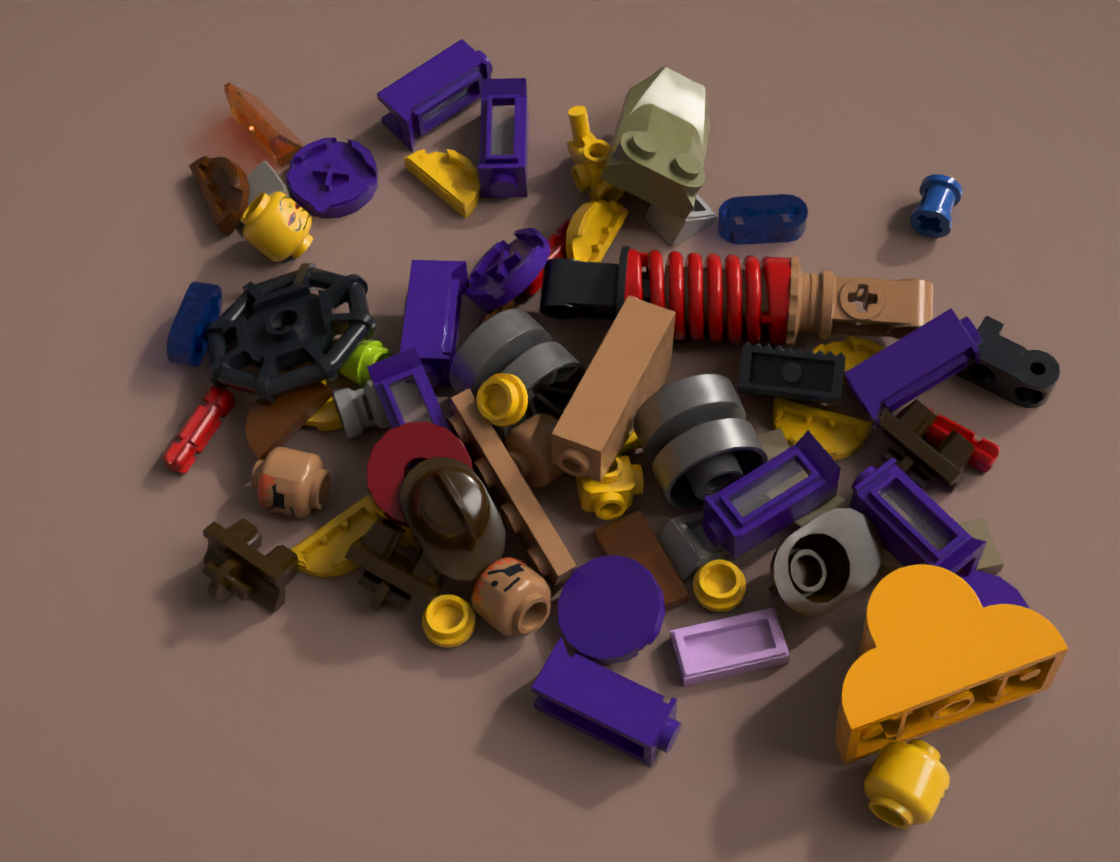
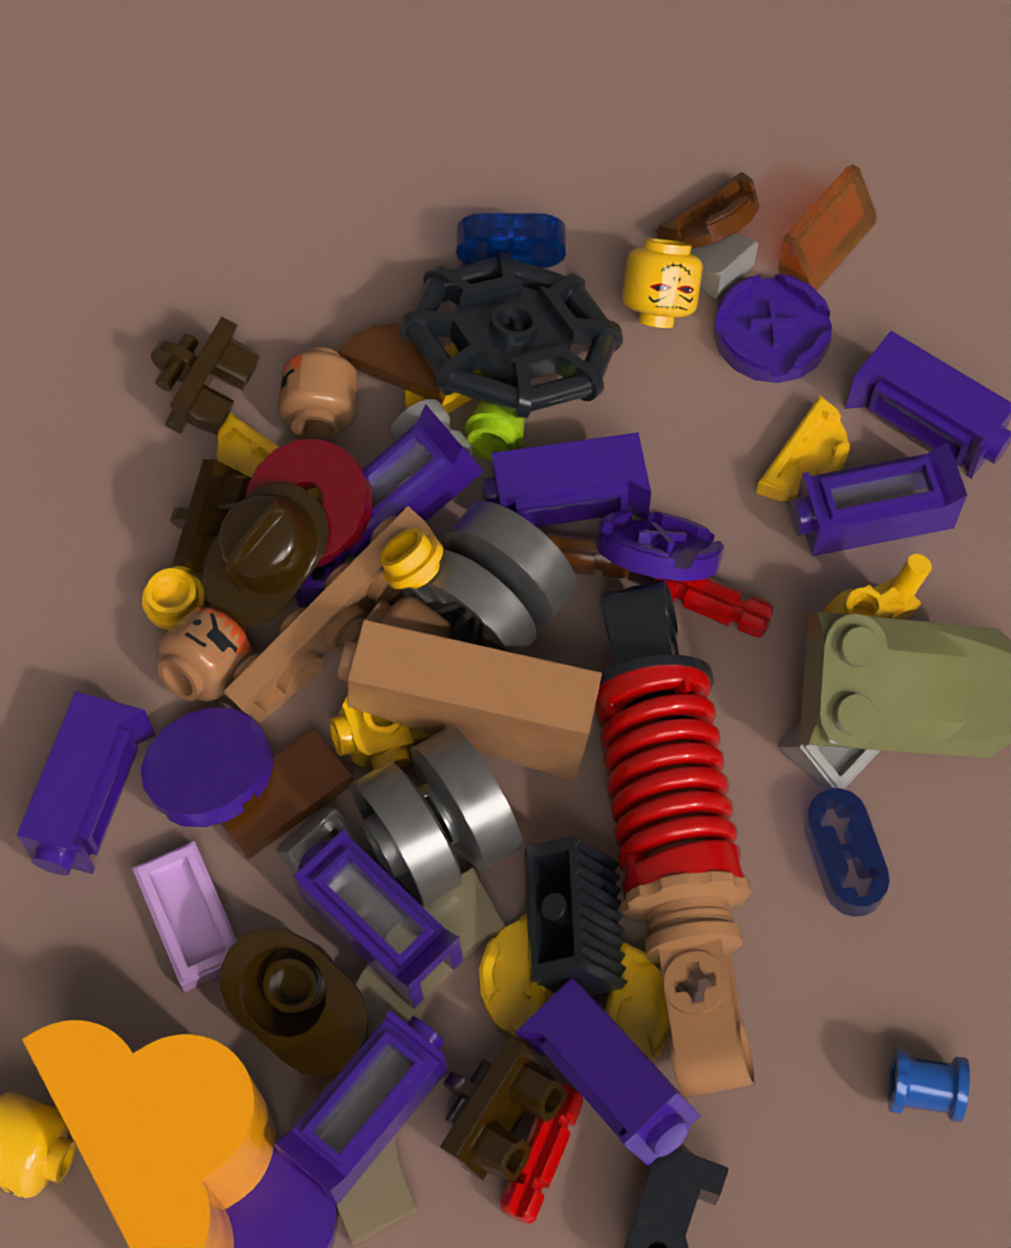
camera: 75 degrees right, 5 degrees up
(198, 429) = (369, 285): red axle -> none
(593, 230) = (753, 637): yellow tile -> none
(719, 586) = (265, 889): yellow plate -> none

